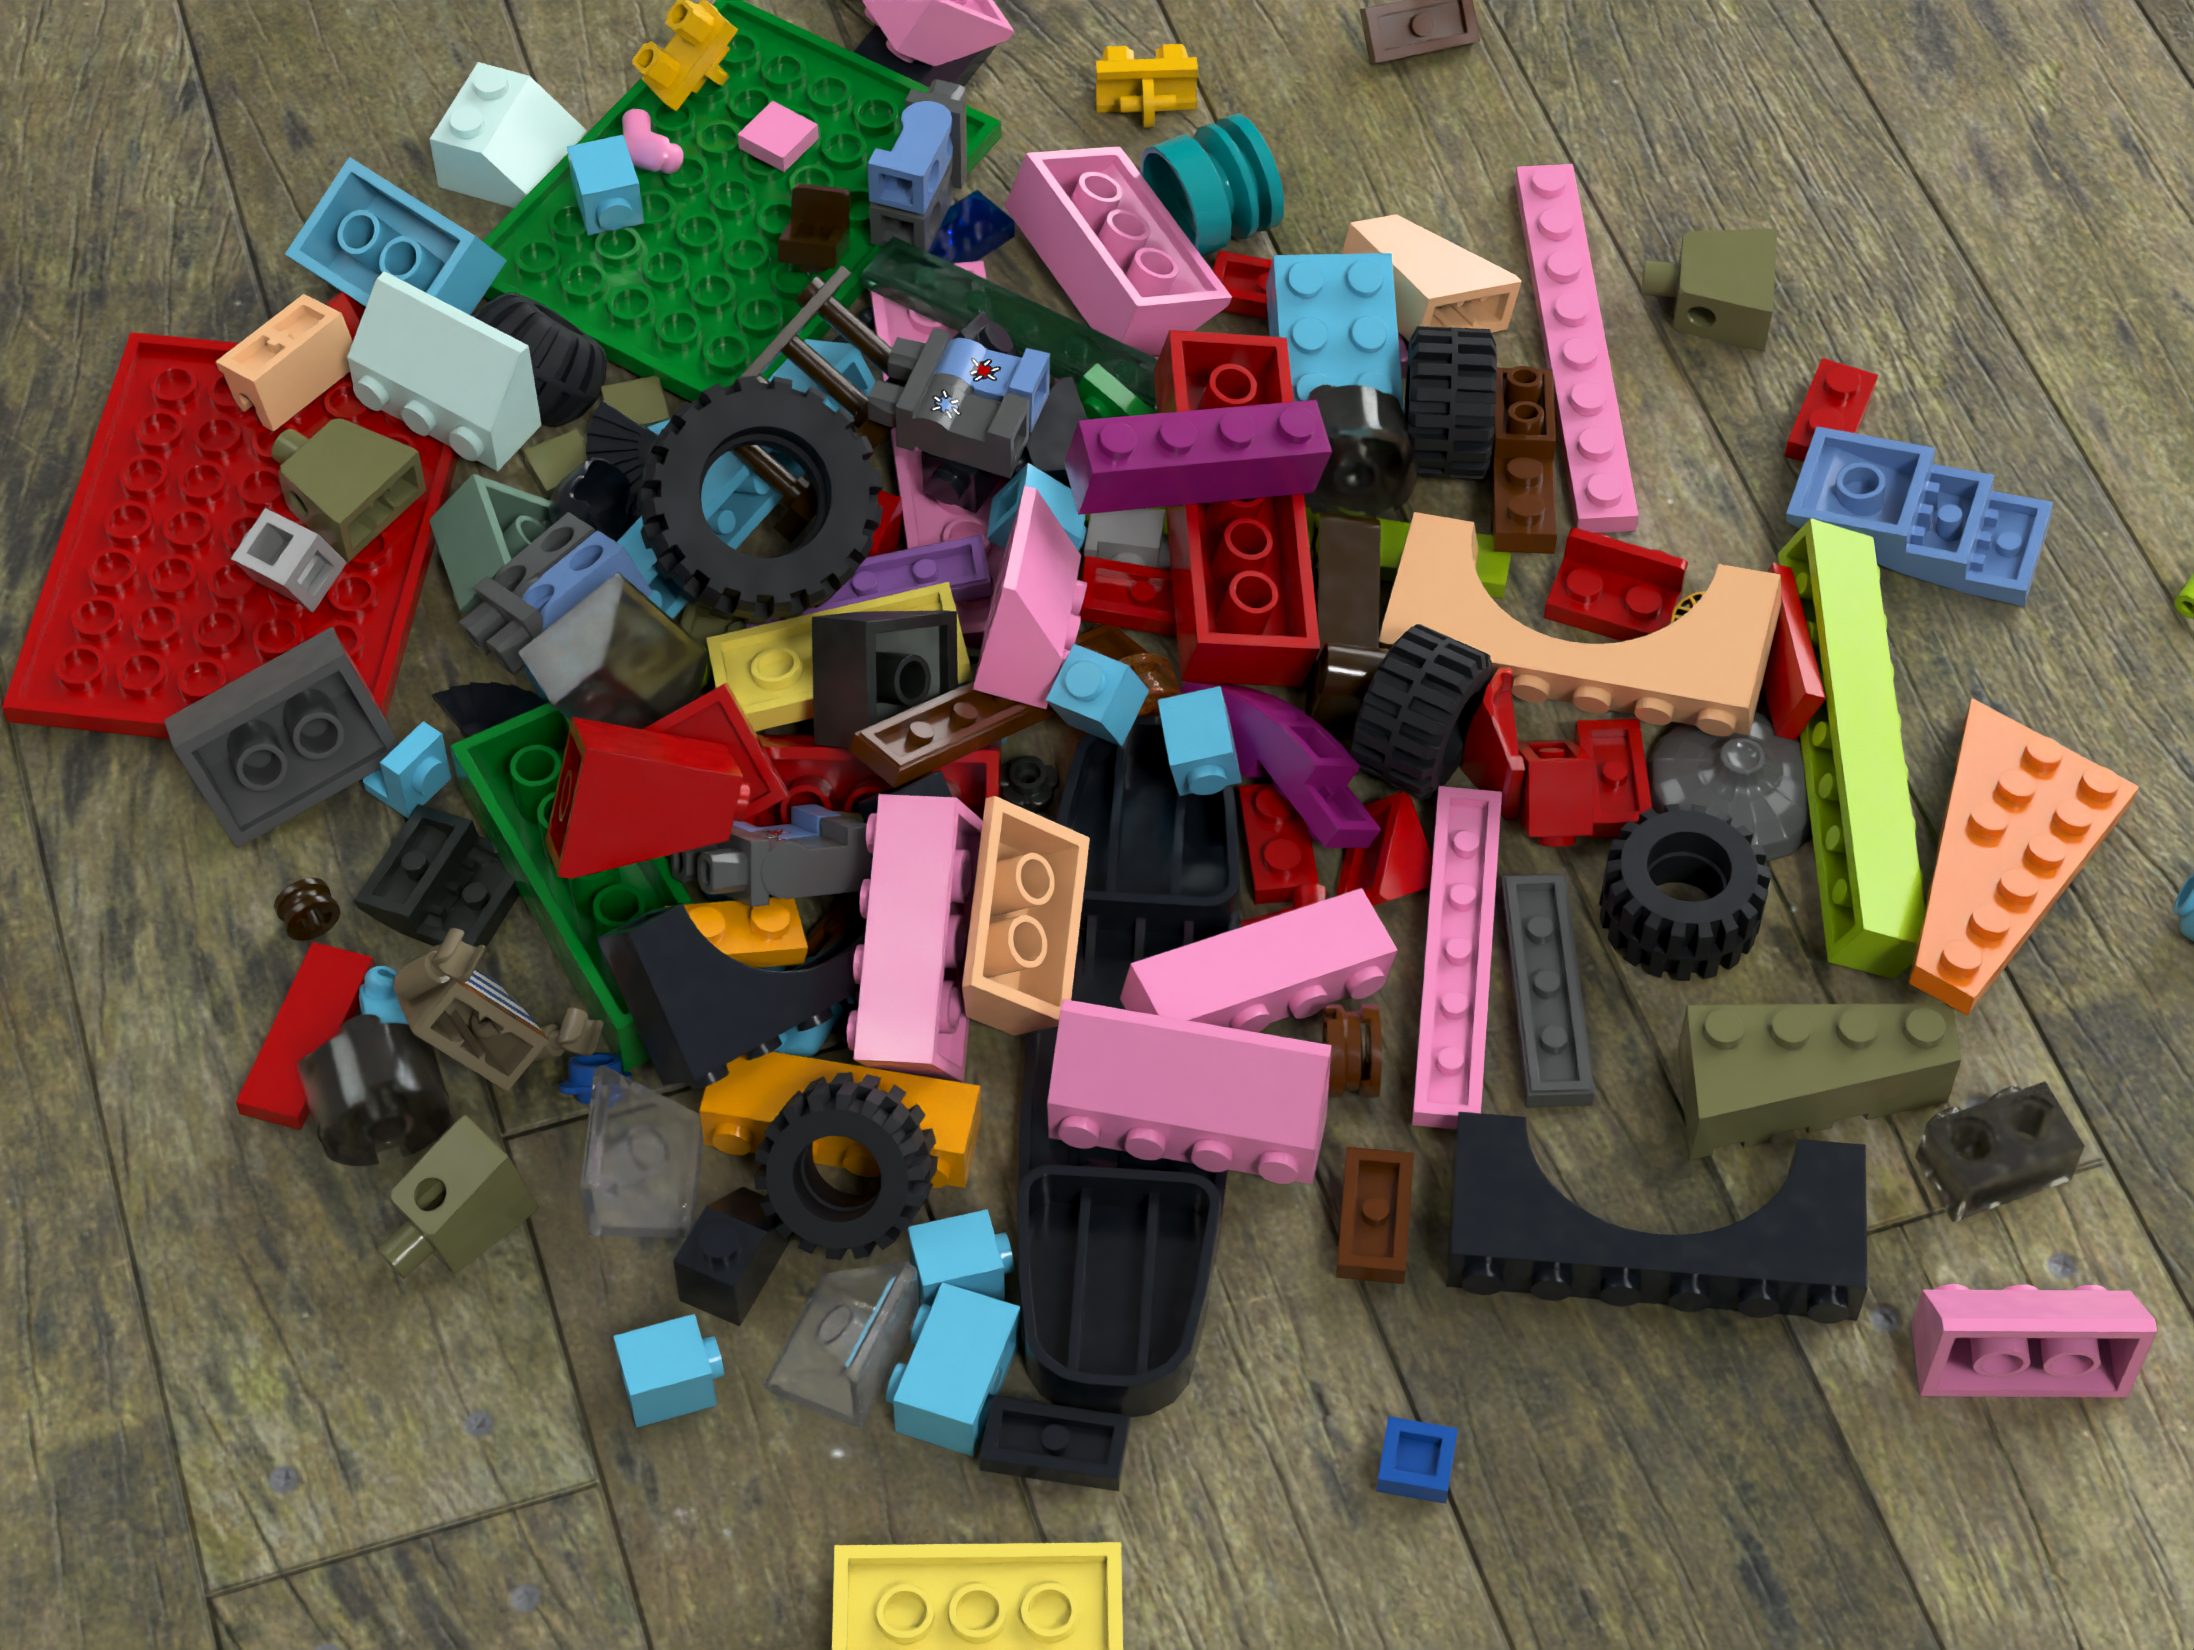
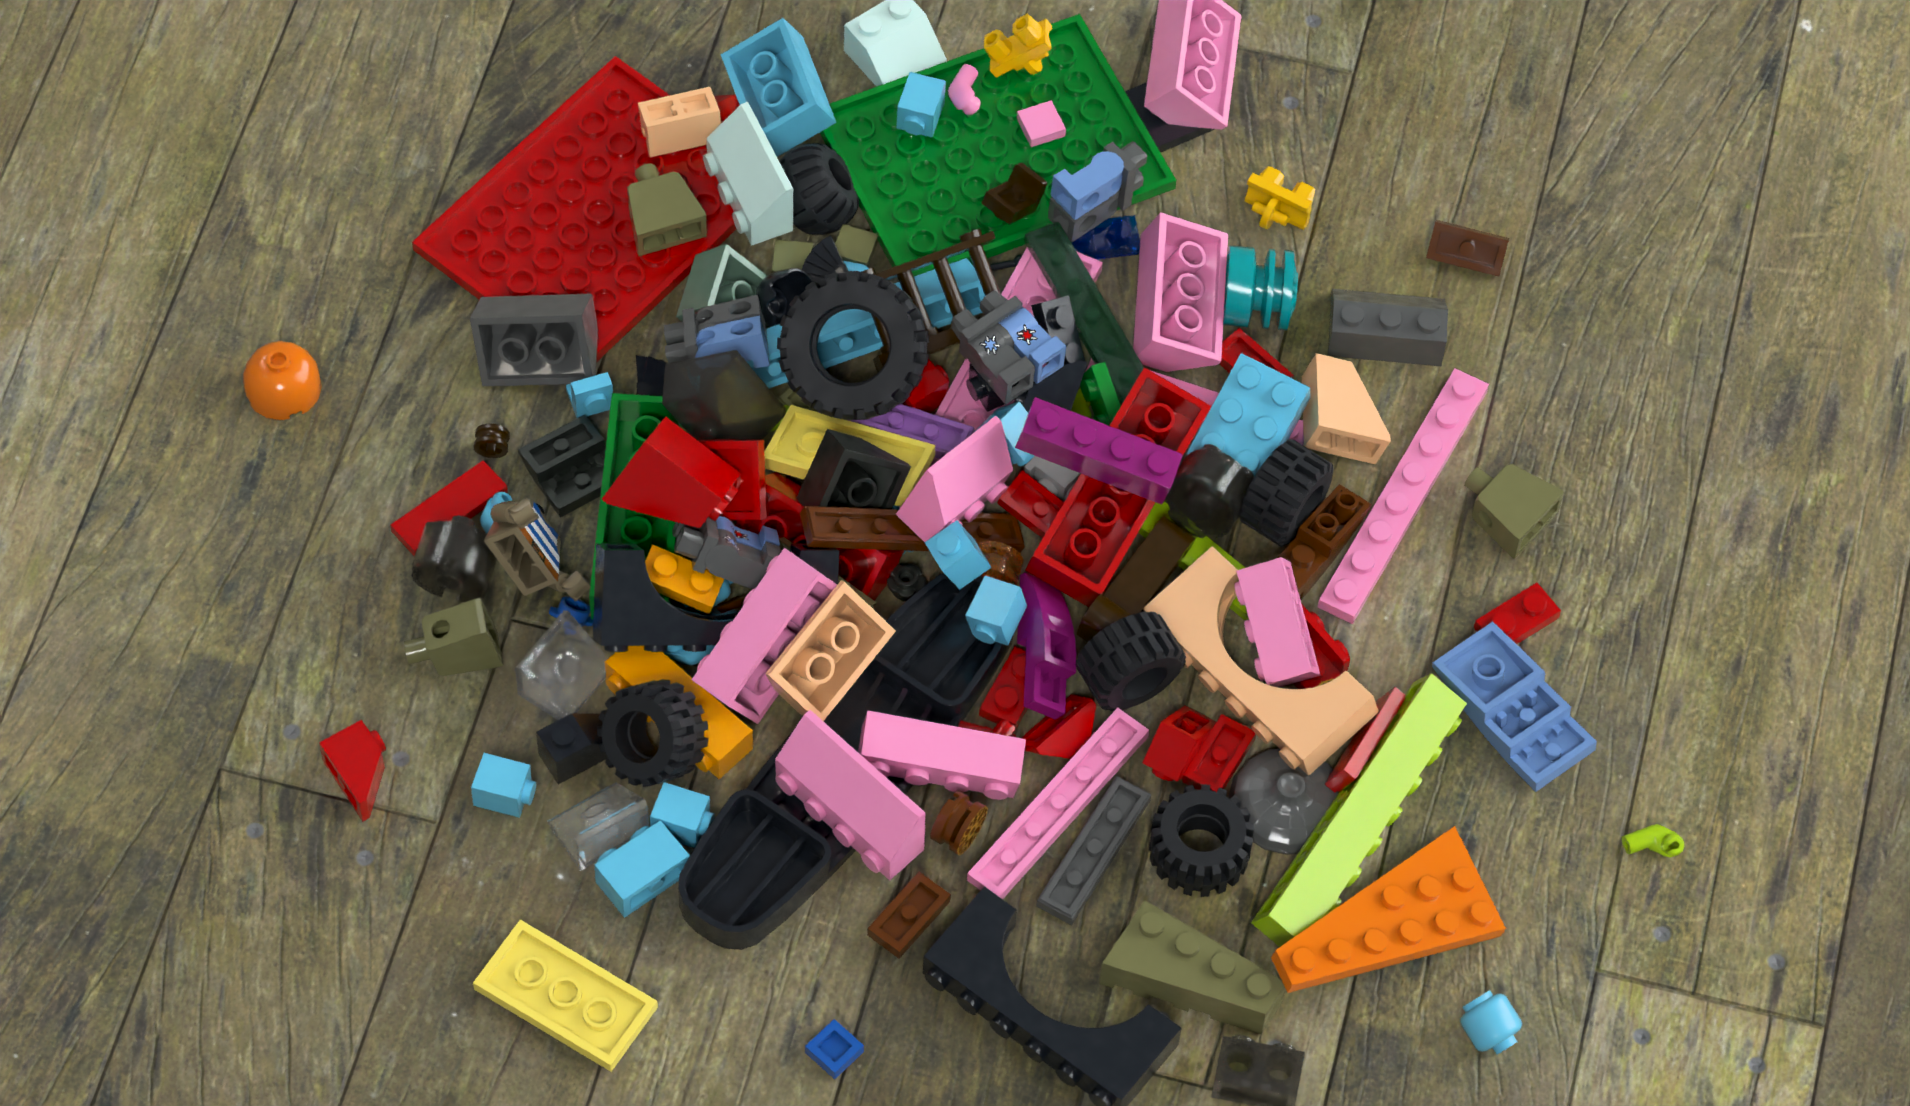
camera: 30 degrees right, 5 degrees up
(289, 559) = (603, 240): light grey brick -> none
(422, 1468) = (356, 764): none -> red slope
(1055, 1443) = (663, 934): black plate -> none
(1399, 161) = (1387, 327): none -> dark grey slope
(1491, 745) = (1168, 694): red slope -> none
(1568, 561) = (1276, 623): none -> bright pink brick

